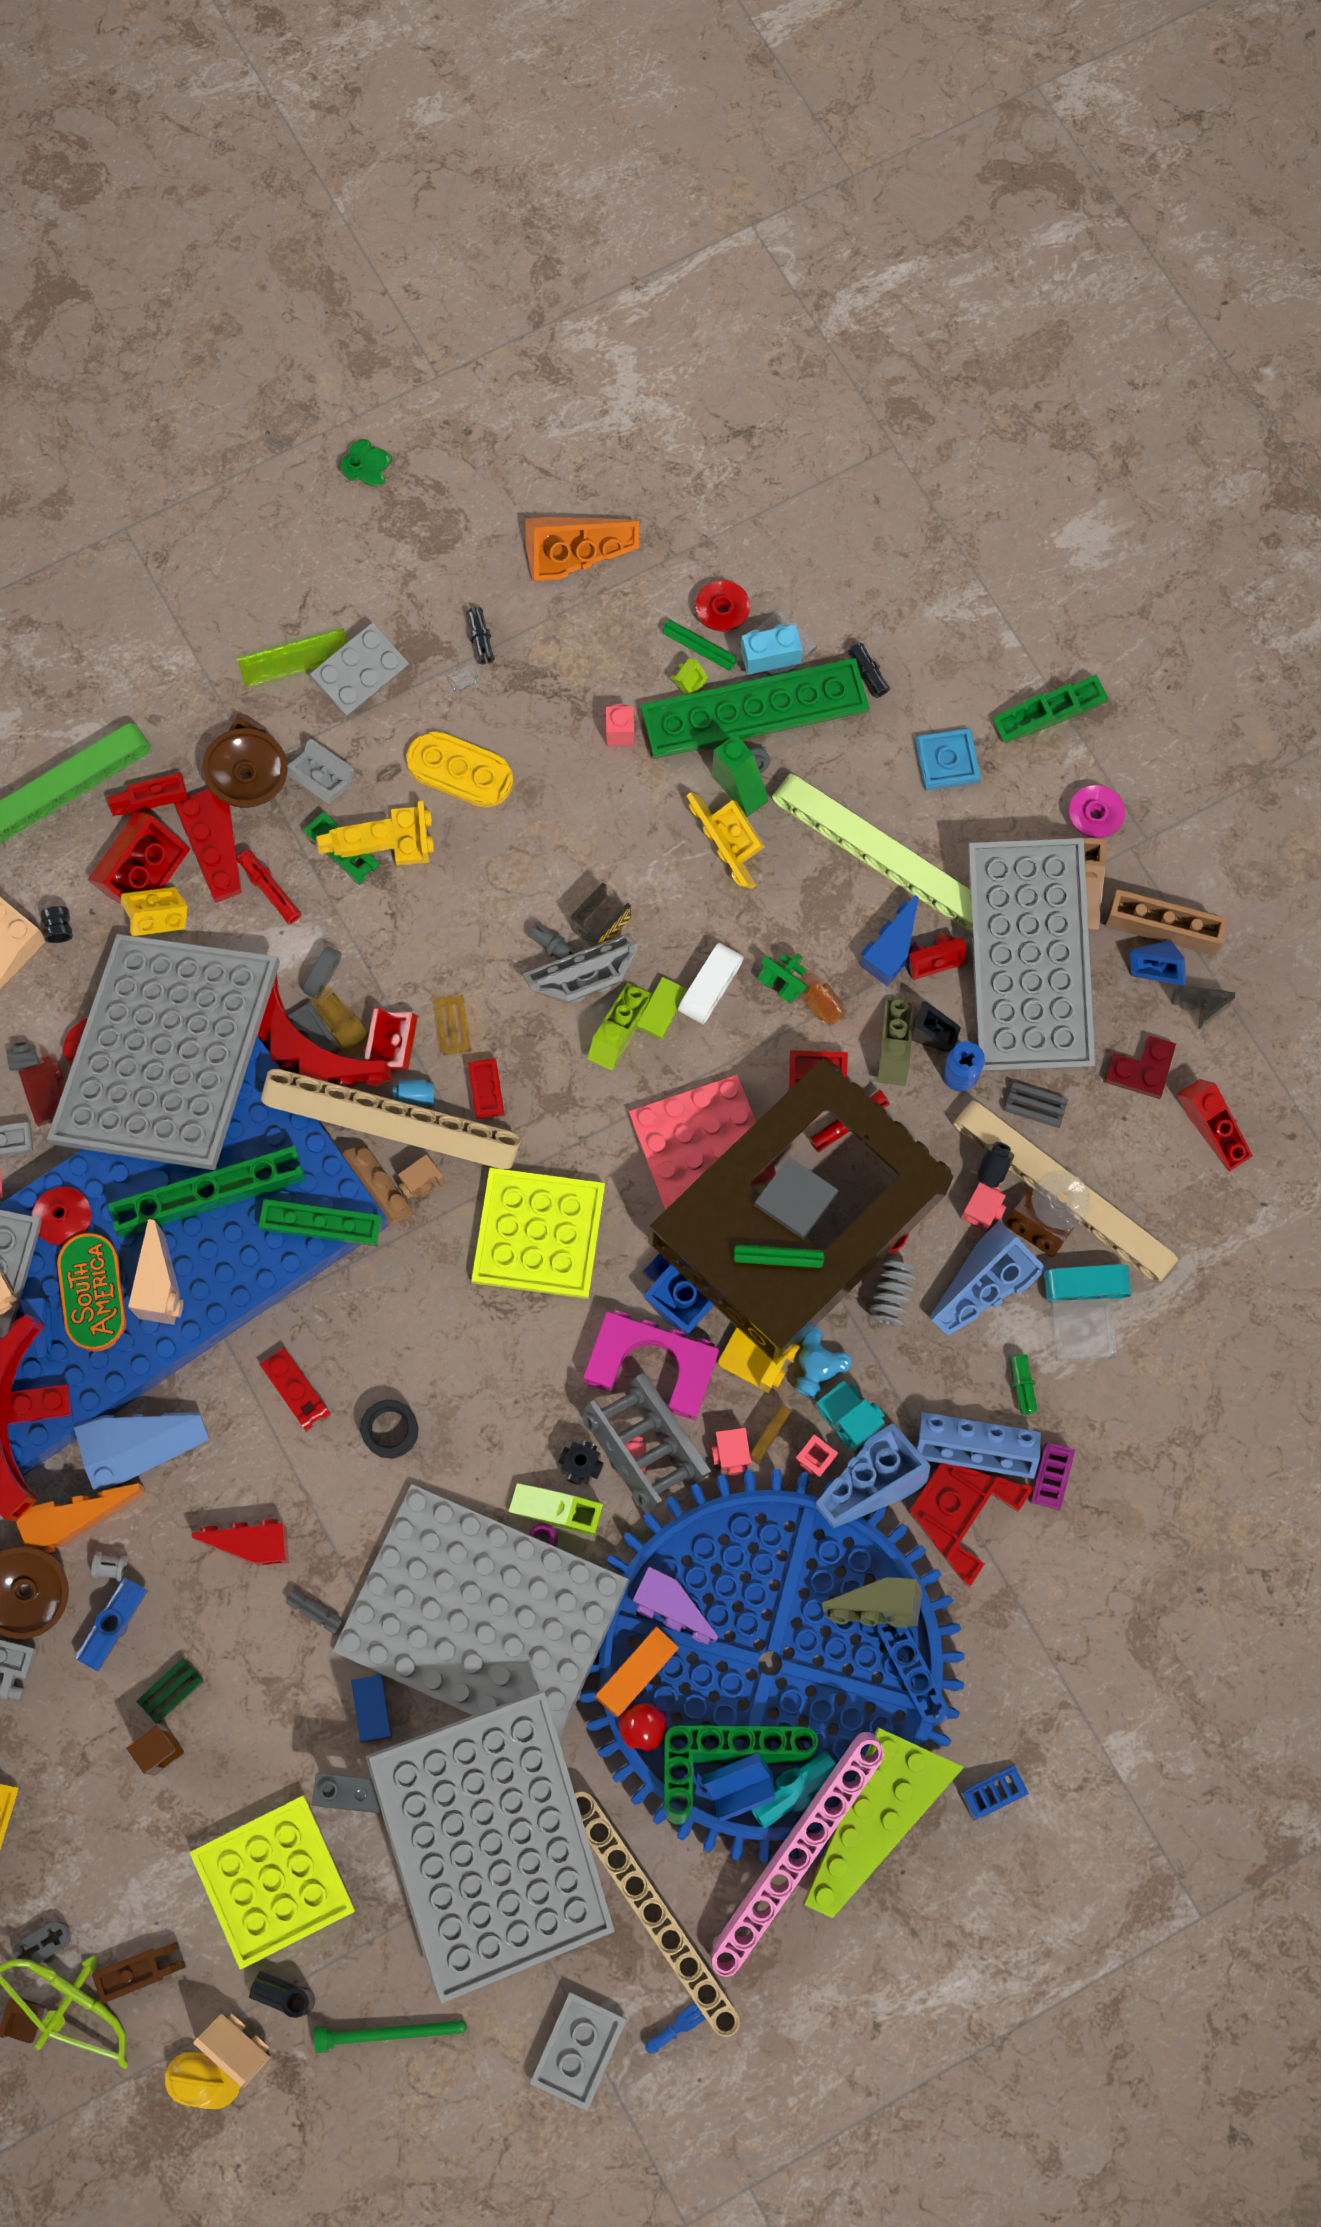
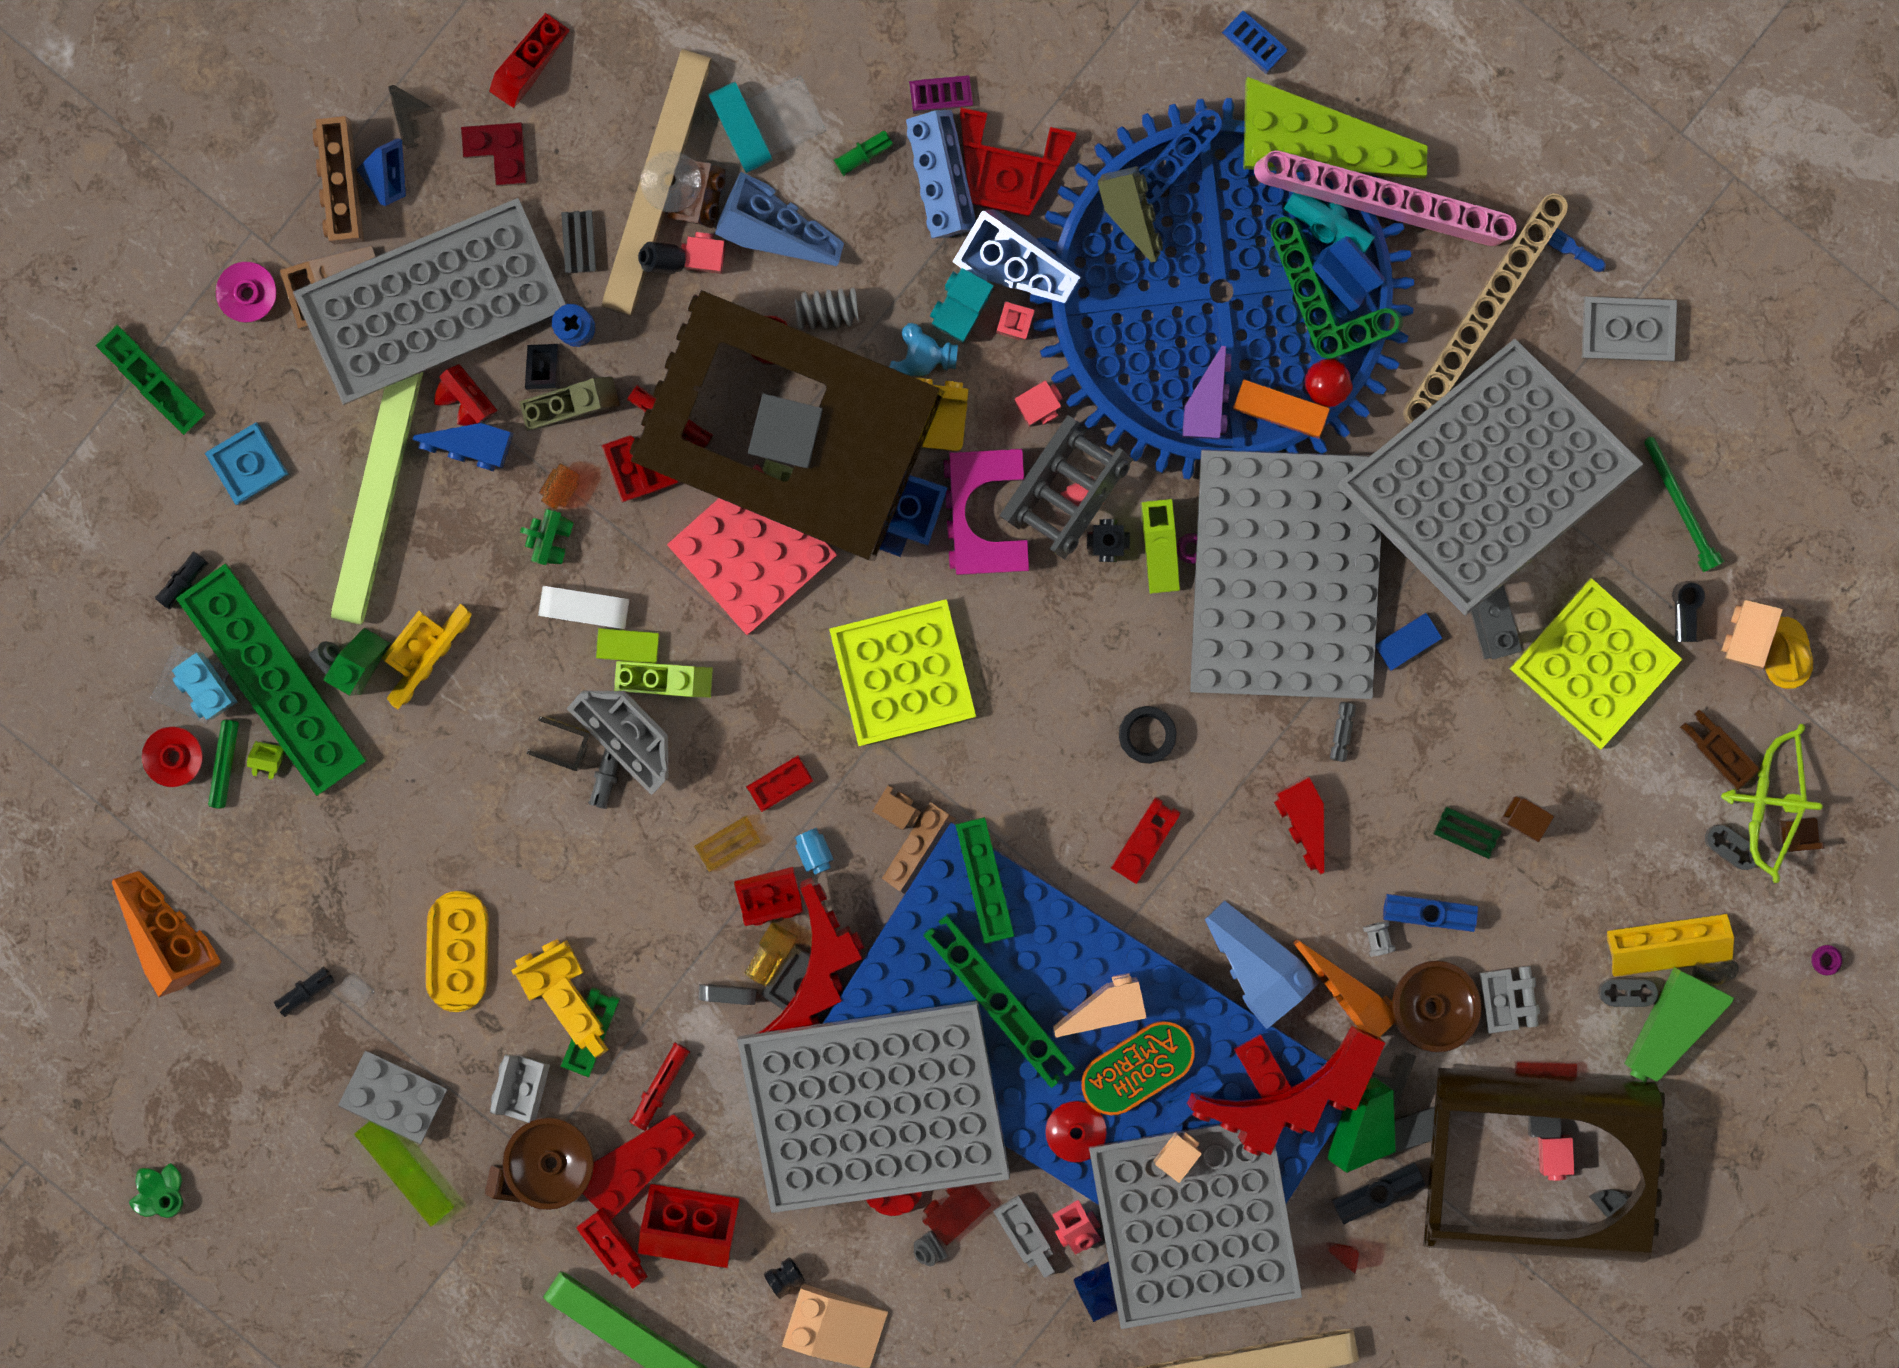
camera: 110 degrees left, 15 degrees up
(155, 911) = (731, 1186): yellow bracket -> none
(390, 1119) = (854, 859): tan beam -> none
(620, 725) = (346, 807): coral brick -> none
(770, 1434) = (1008, 374): pearl gold tile -> none
(778, 1256) = (850, 424): green axle -> none

